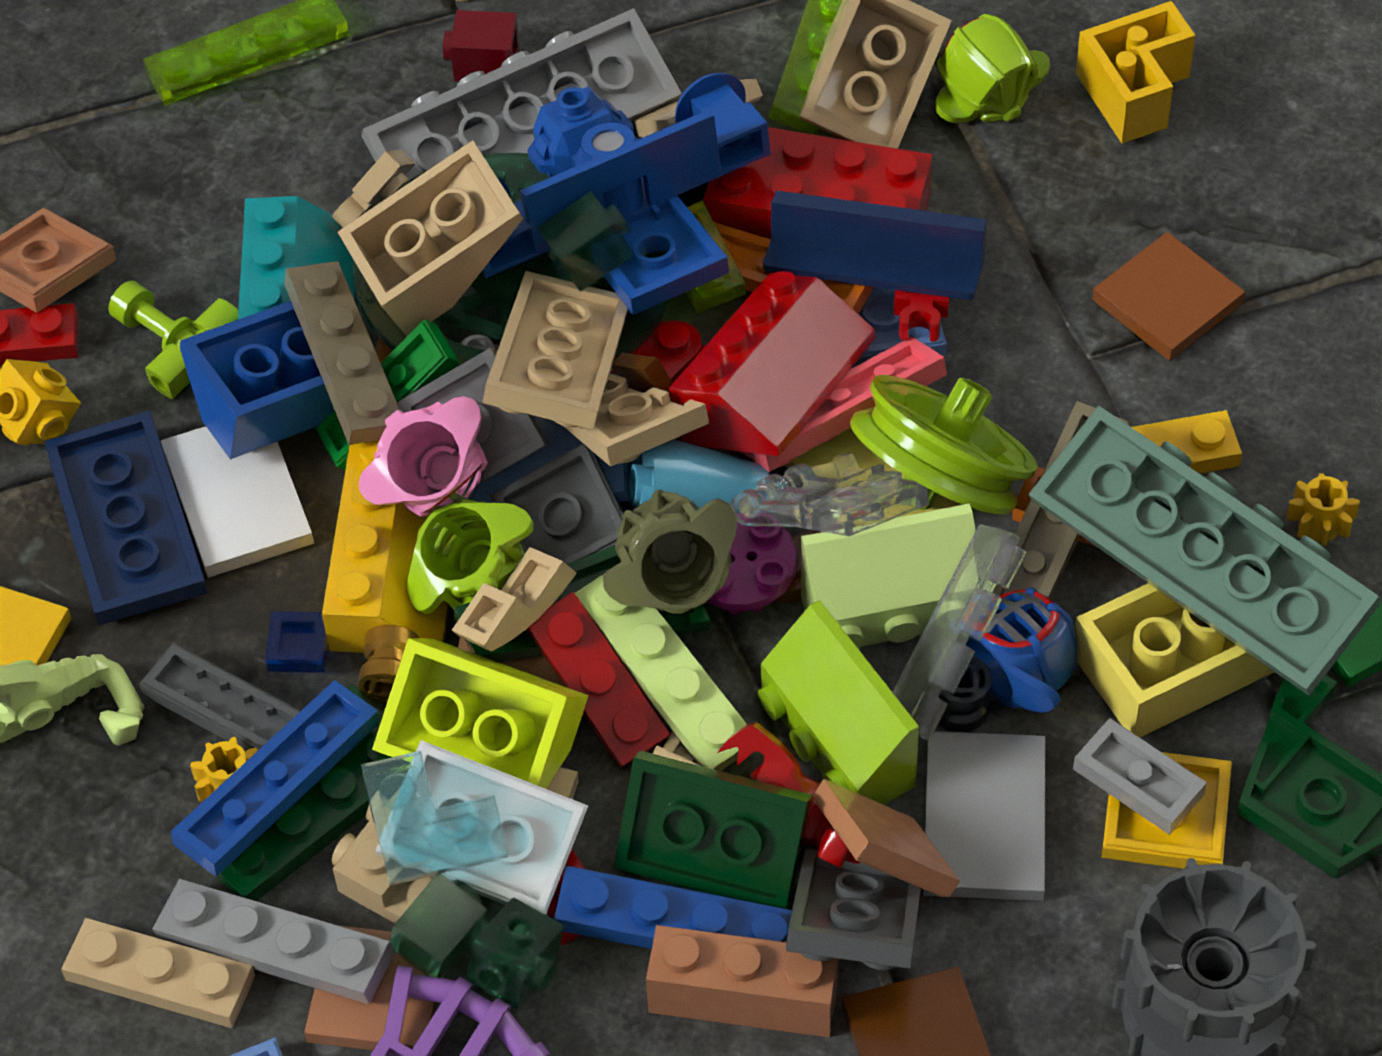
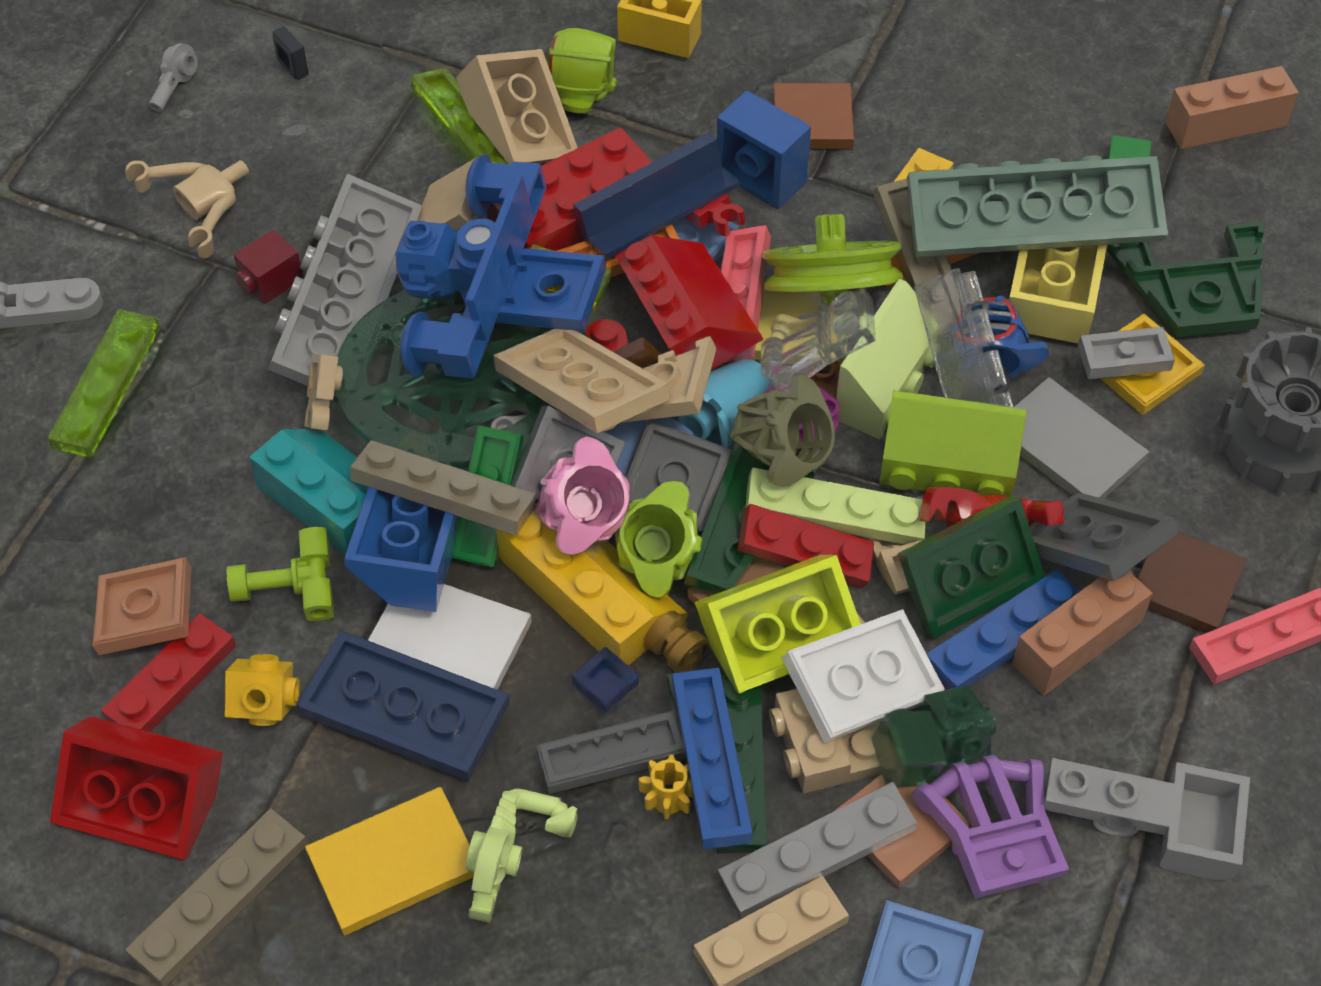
camera: 50 degrees left, 0 degrees up
(424, 840) = (850, 702): clear light blue plate -> none
(432, 237) = (433, 371): tan slope -> none
(503, 614) = (727, 536): tan slope -> none
(587, 240) = (519, 306): brick -> none
(885, 839) = (1065, 488): nougat tile -> none
(1047, 283) = (764, 148): none -> blue brick
(1323, 509) = (1026, 149): yellow gear -> none

